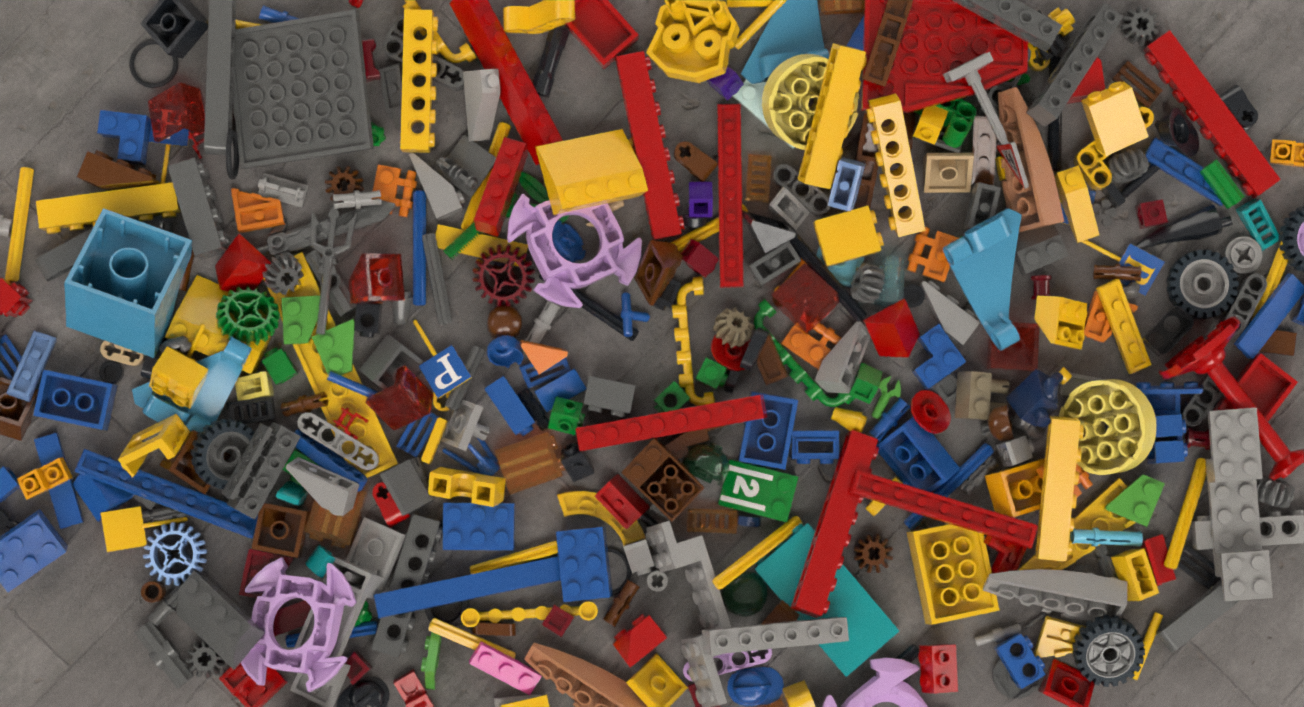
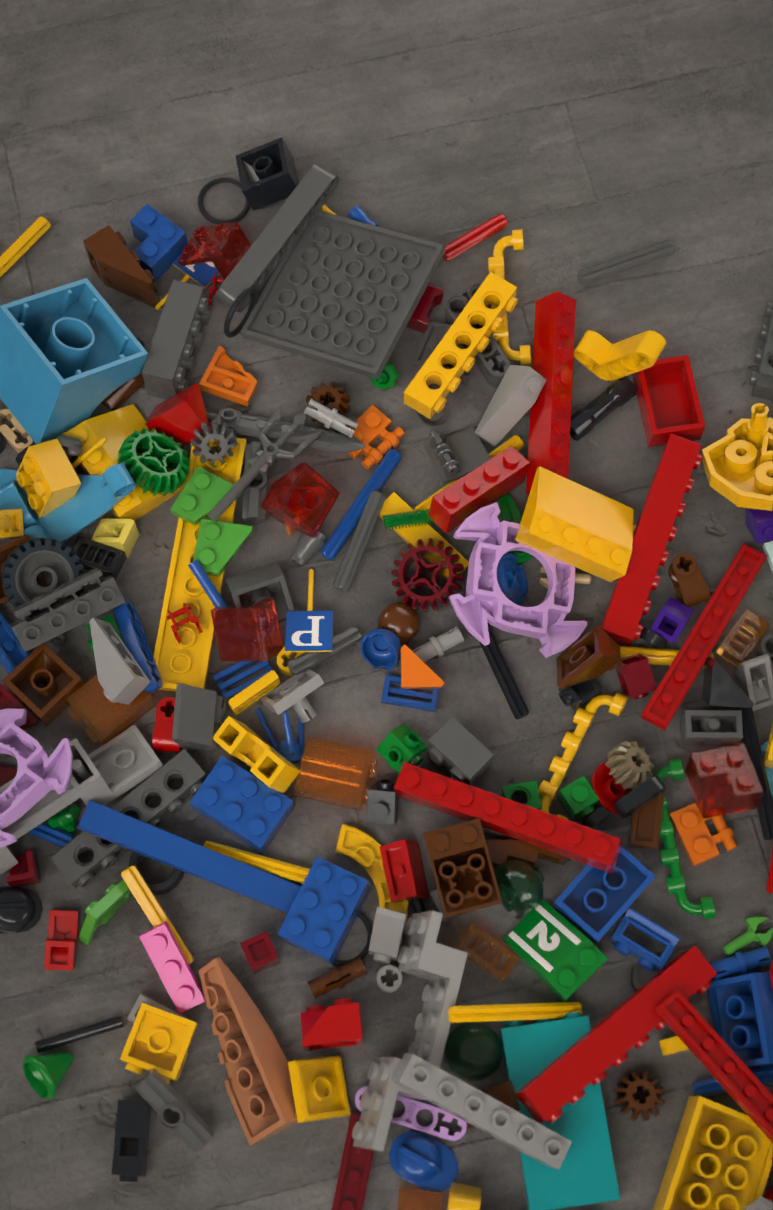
camera: 35 degrees right, 15 degrees down
(85, 209) = (135, 309): yellow brick -> none
(279, 366) = (152, 531): green brick -> none
(282, 189) = (269, 378): light grey hinge -> none
(292, 493) = (79, 656): teal slope -> none
(304, 404) = (151, 579): reddish brown pin -> none
(318, 560) = (55, 736): teal slope -> none
(340, 438) = (155, 635): light grey beam -> none
(368, 309) = (267, 527): black brick -> none
(440, 193) = (415, 463): light grey slope -> none
(471, 617) = (173, 890): yellow bar -> none
(491, 628) = (188, 919): reddish brown beam -> none
(510, 406) = (352, 706): blue brick -> none
(534, 409) = (374, 724): black axle -> none
(564, 387) = (420, 719): blue slope -> none
(629, 315) = (528, 689): blue piece -> none
(749, 521) = (525, 976): dark blue tile -> none
(843, 361) = (726, 870): light grey slope -> none
(849, 419) = (697, 935): yellow cone -> none
(865, 383) = (737, 907): green brick -> none

